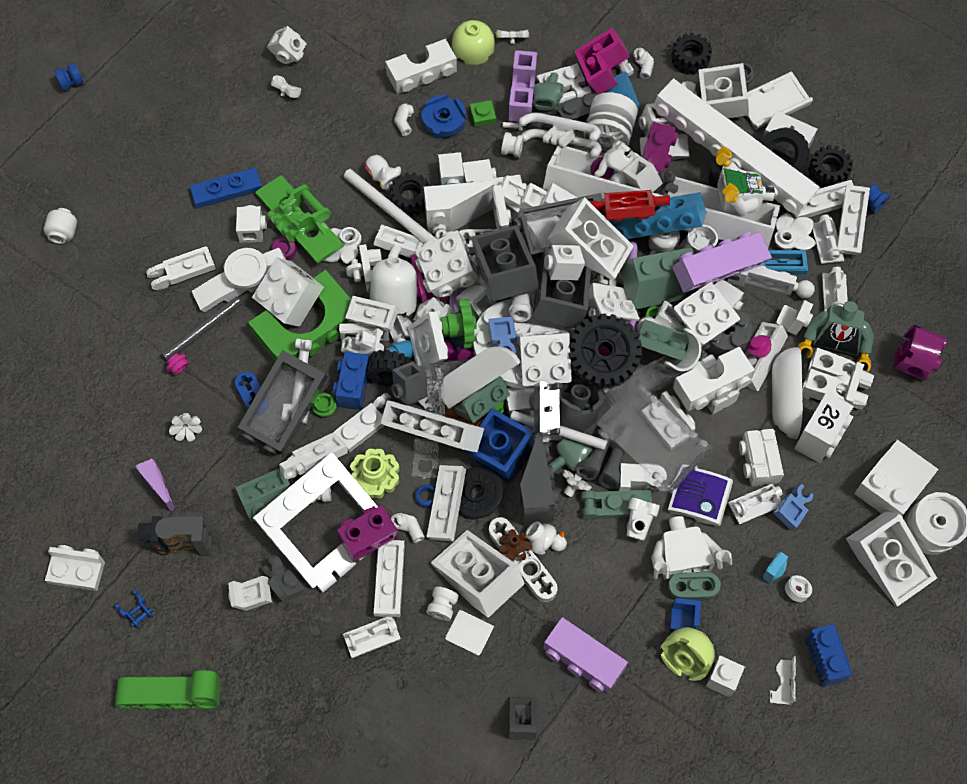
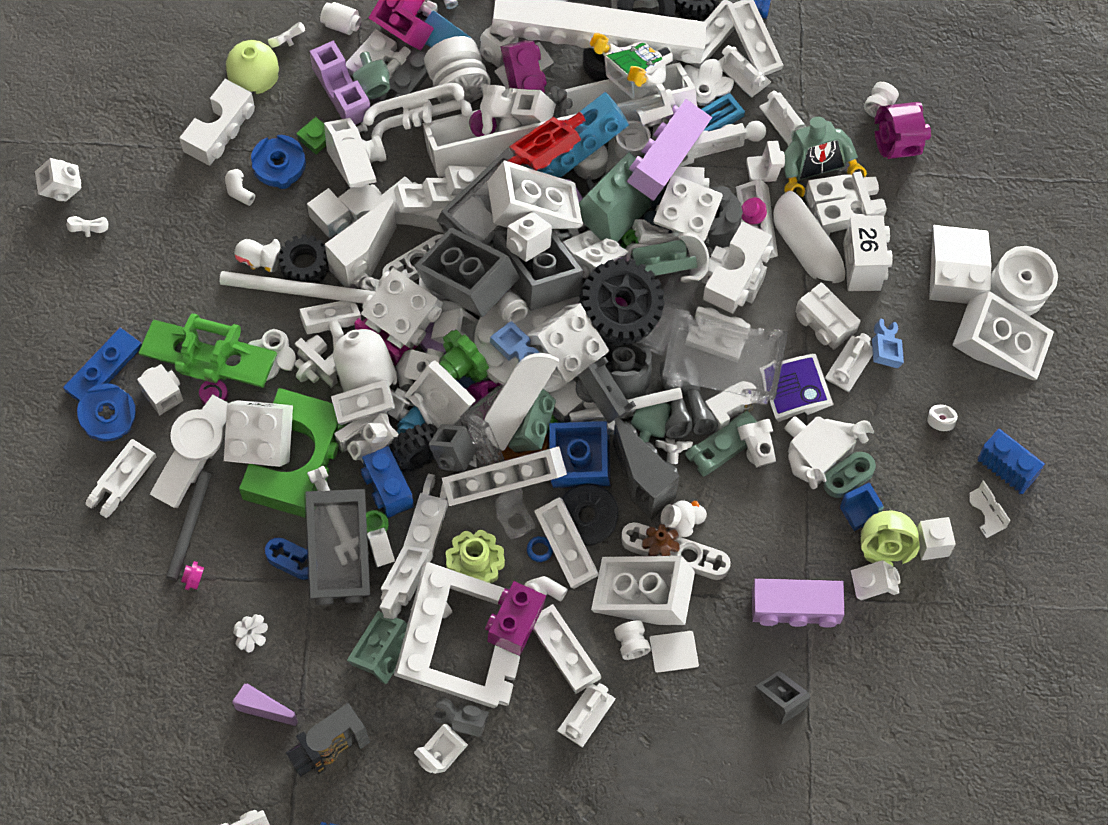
camera: 35 degrees left, 0 degrees up
(198, 207) = (93, 402): none -> blue plate
(315, 423) = (380, 547): none -> white piece
(412, 335) = (417, 400): none -> white hinge
(491, 136) = (348, 152): none -> white slope
(501, 215) = (418, 225): white plate -> none
(557, 42) = (340, 18): none -> white brick
(657, 678) = (875, 580): none -> white bracket
(730, 229) = (653, 113): none -> white bracket
(776, 568) = (910, 411): medium azure tile -> none
(924, 318) = (882, 95): none -> white wheel

